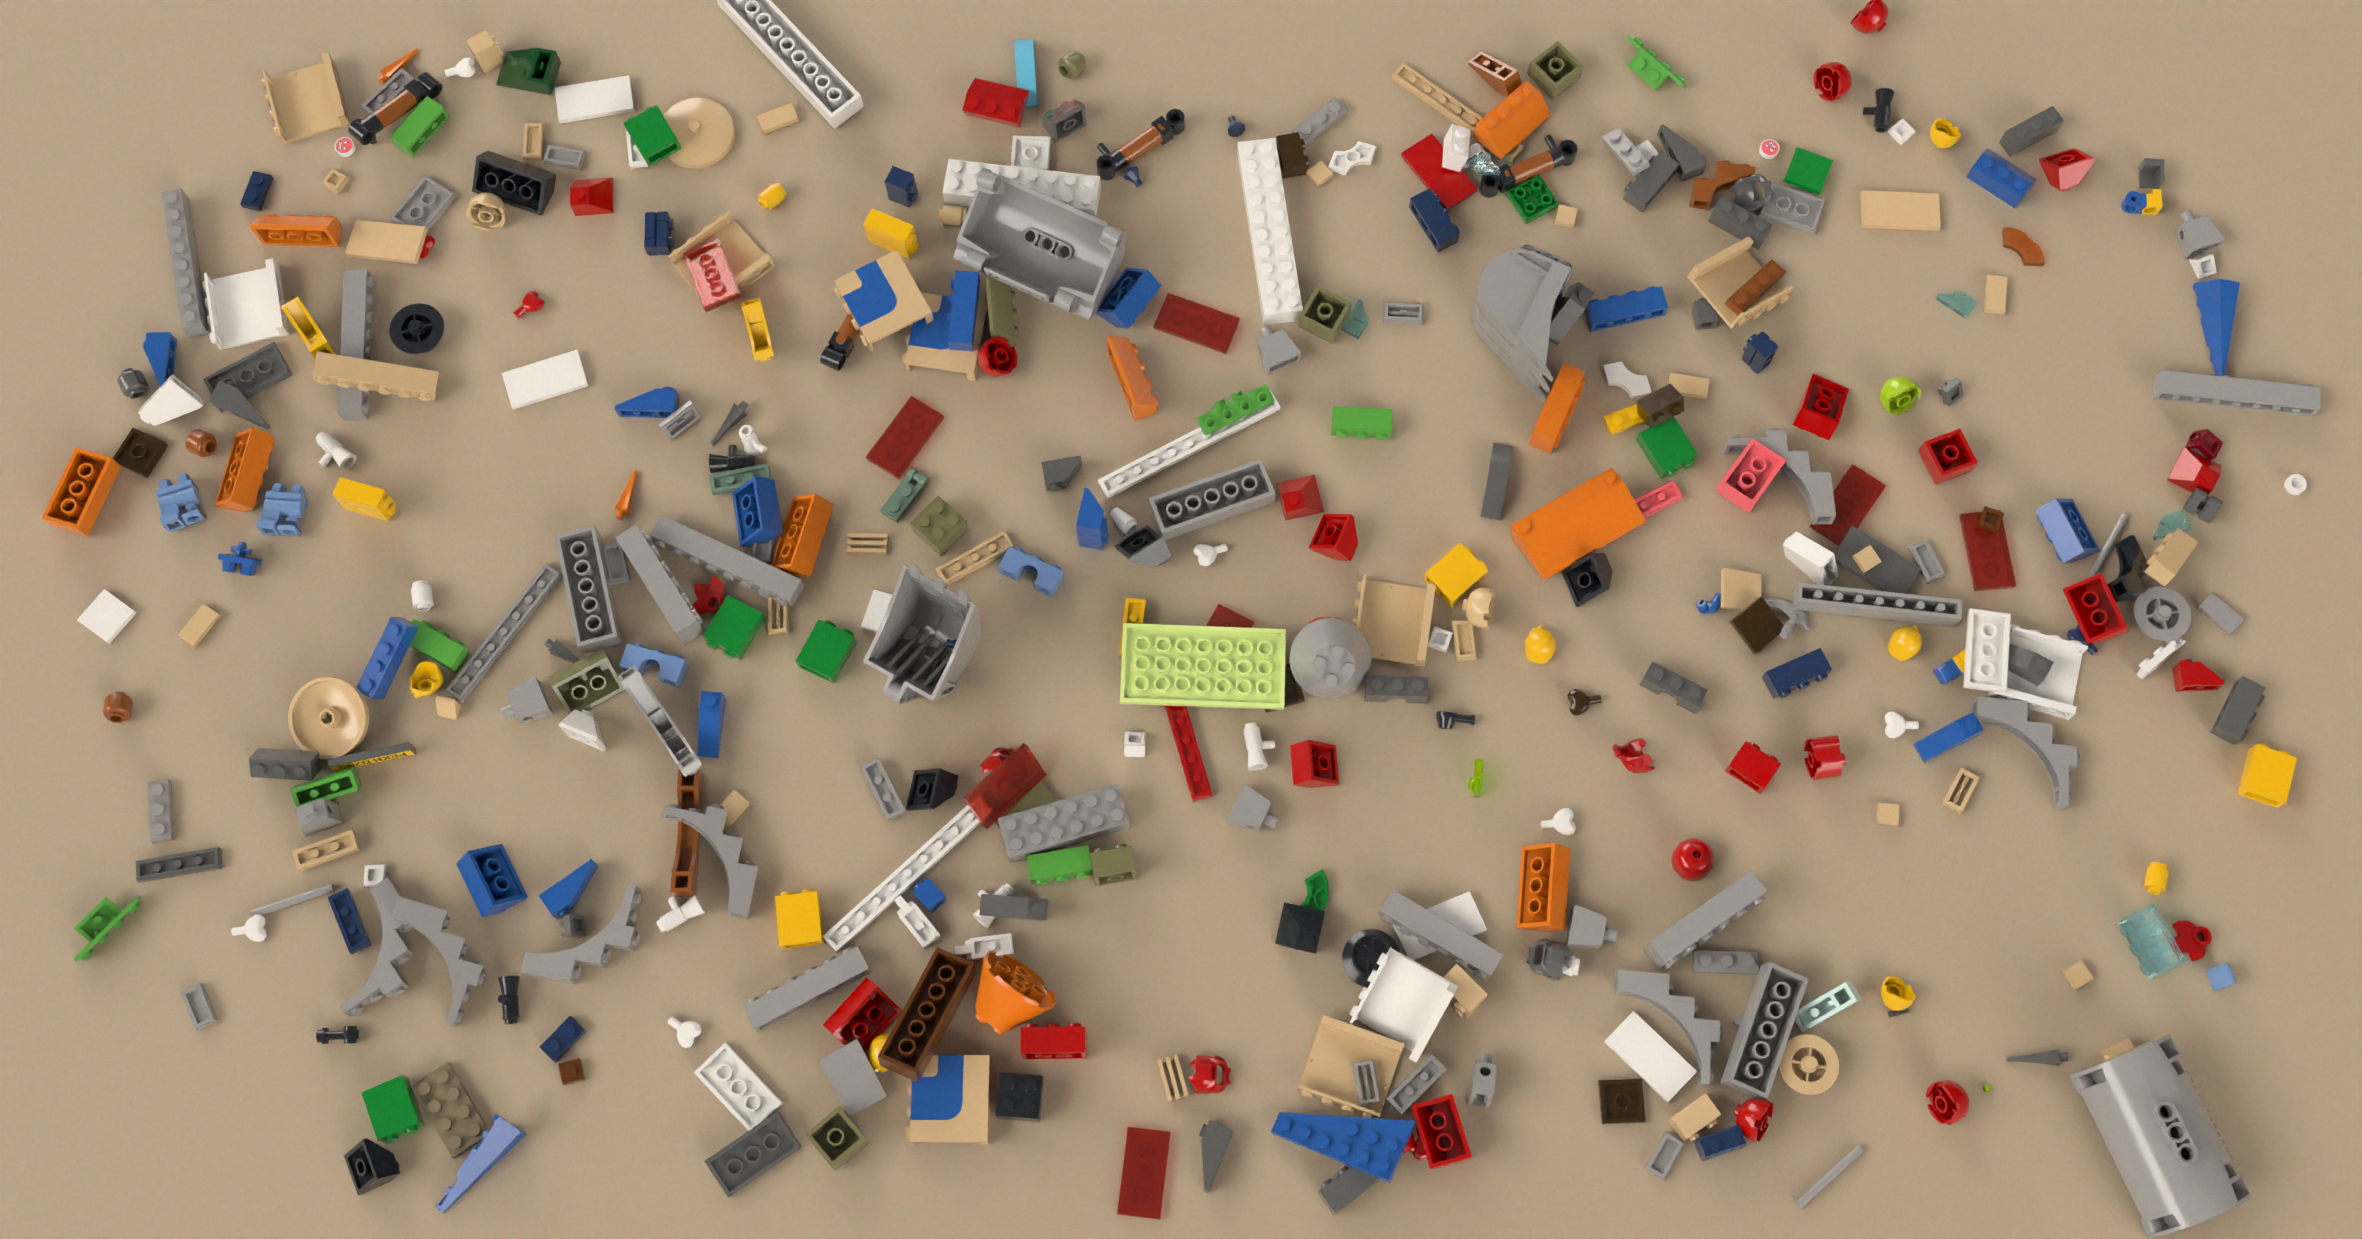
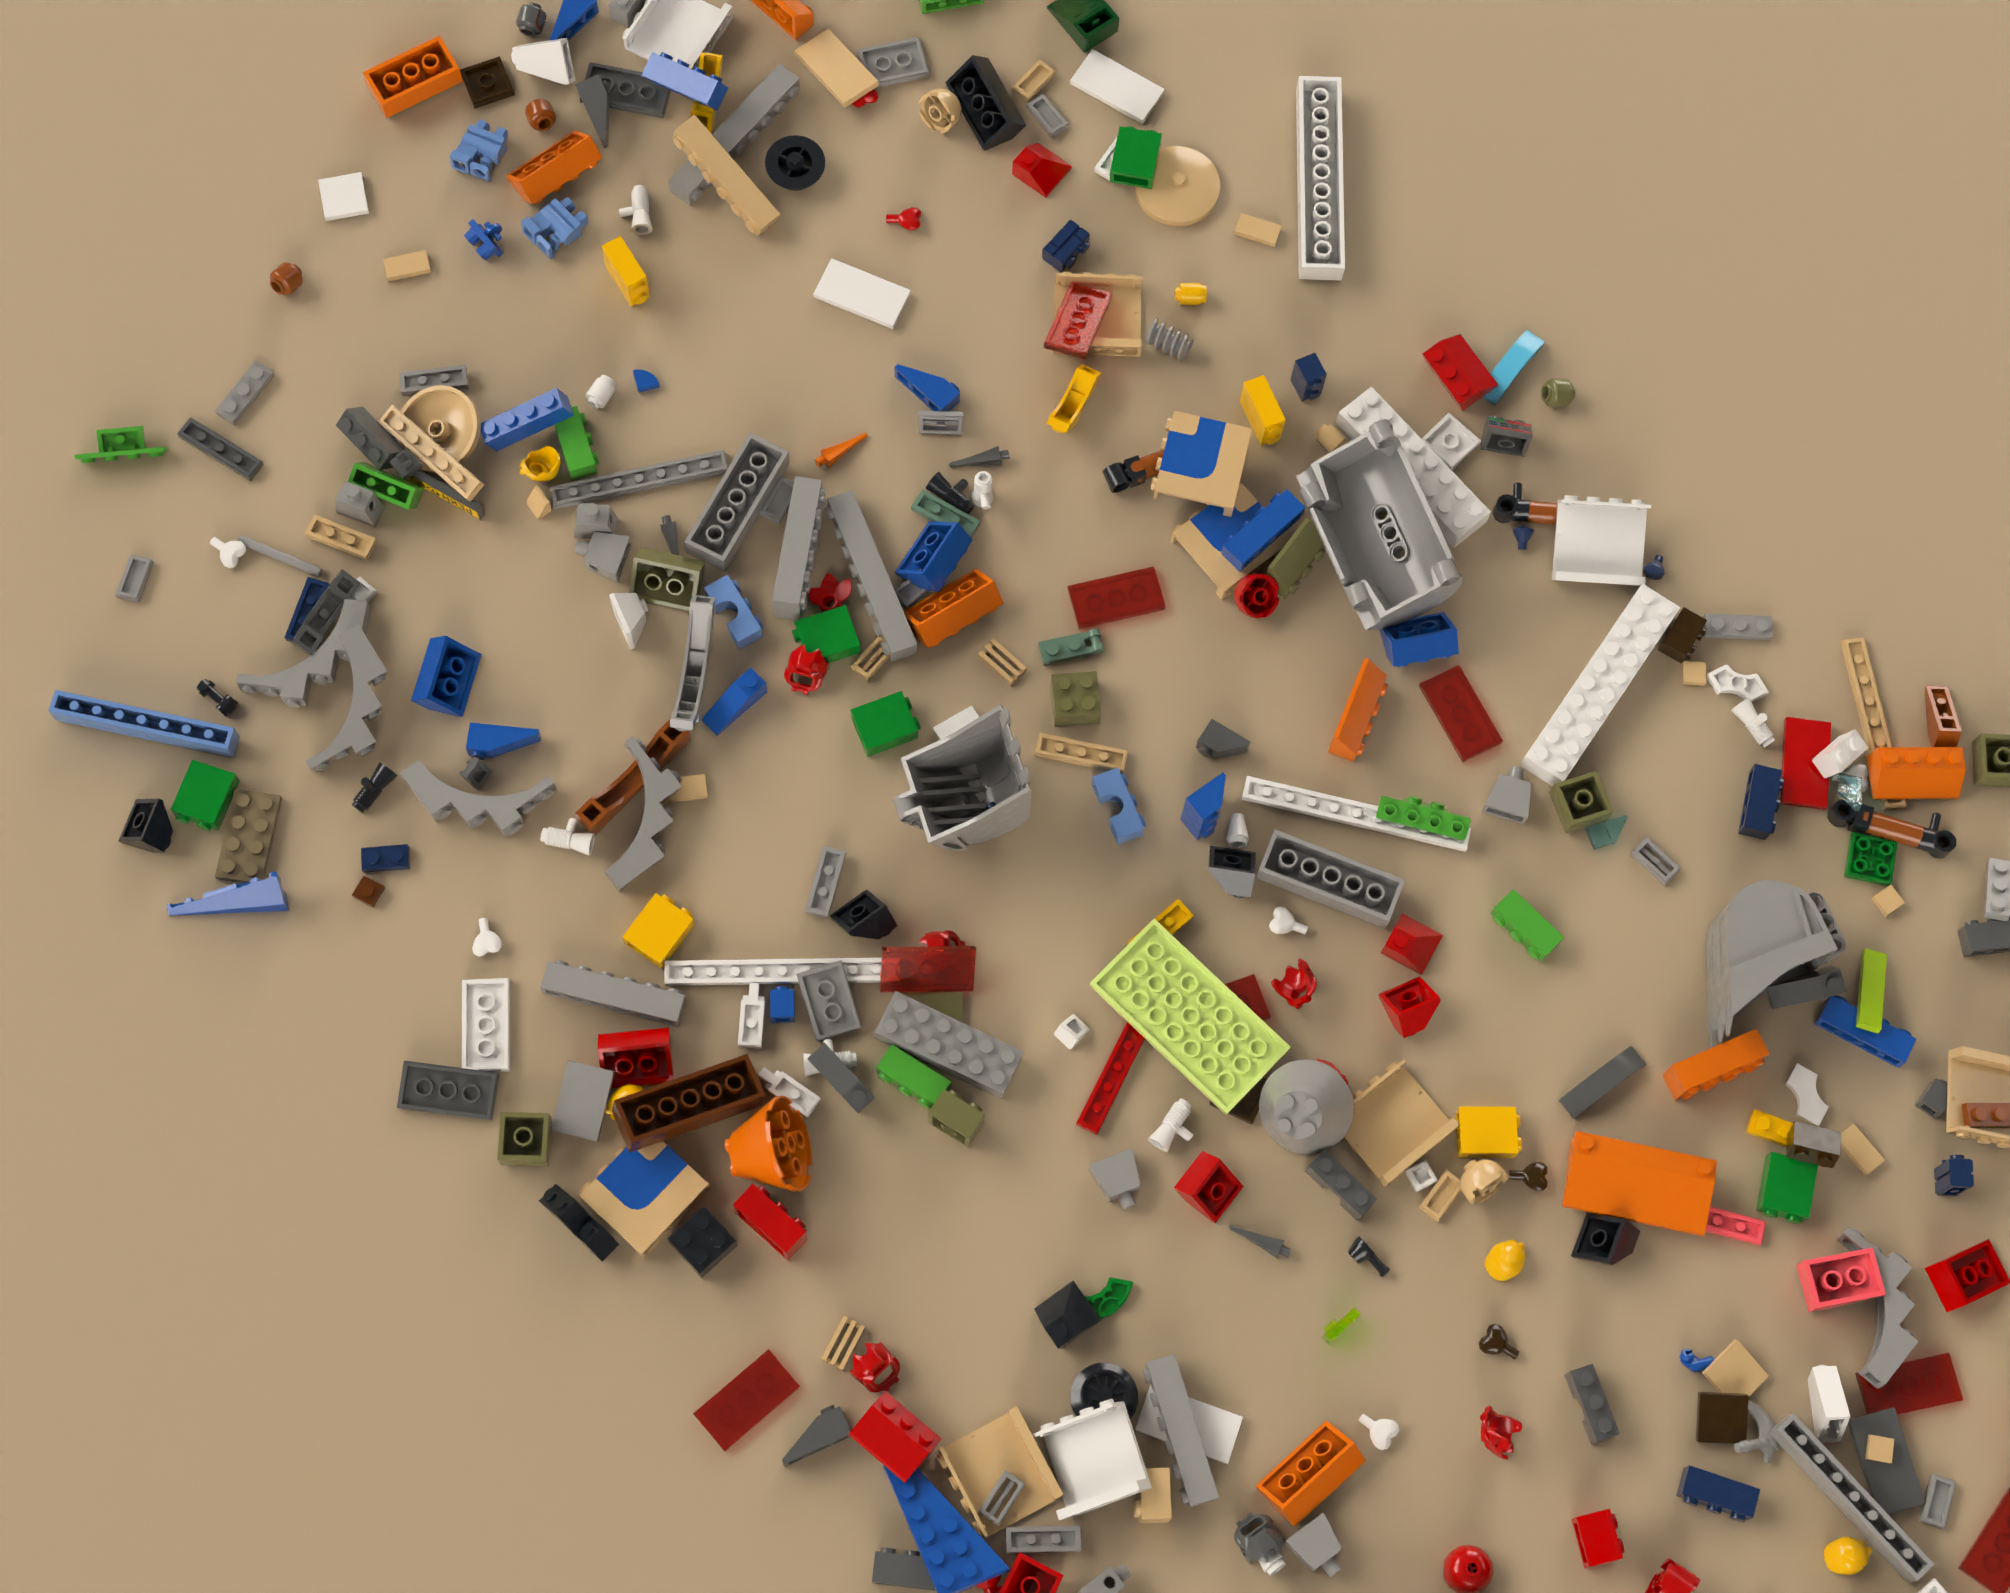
camera: 35 degrees right, 0 degrees up
(281, 698) = (415, 381): none -> light grey plate
(286, 335) = (685, 81): none -> brick
(301, 1099) = (144, 723): none -> medium blue brick
(328, 760) = (405, 464): none -> dark grey tile
(338, 737) = (431, 453): none -> tan tile
(362, 910) = (324, 612): none -> dark grey slope
(446, 562) = (645, 380): none -> blue tile
(497, 685) = (594, 518): none -> light grey torso
(737, 657) = (808, 665): none -> red helmet
(785, 238) = (1169, 340): none -> light grey piece
(925, 1159) = (579, 1222): none -> black arch
(958, 864) = (829, 1000): none -> light grey tile
(1185, 137) = (1599, 541): none -> white panel
(1250, 585) = (1295, 983): none -> red helmet
(1263, 1106) = (895, 1436): none -> red slope
(1385, 173) = (1753, 722): none -> white piece
(1386, 767) = (1269, 1244): none -> dark grey piece
(1508, 577) = (1532, 1176): none -> dark brown rock
(1607, 280) = (1871, 990): none -> lime tile

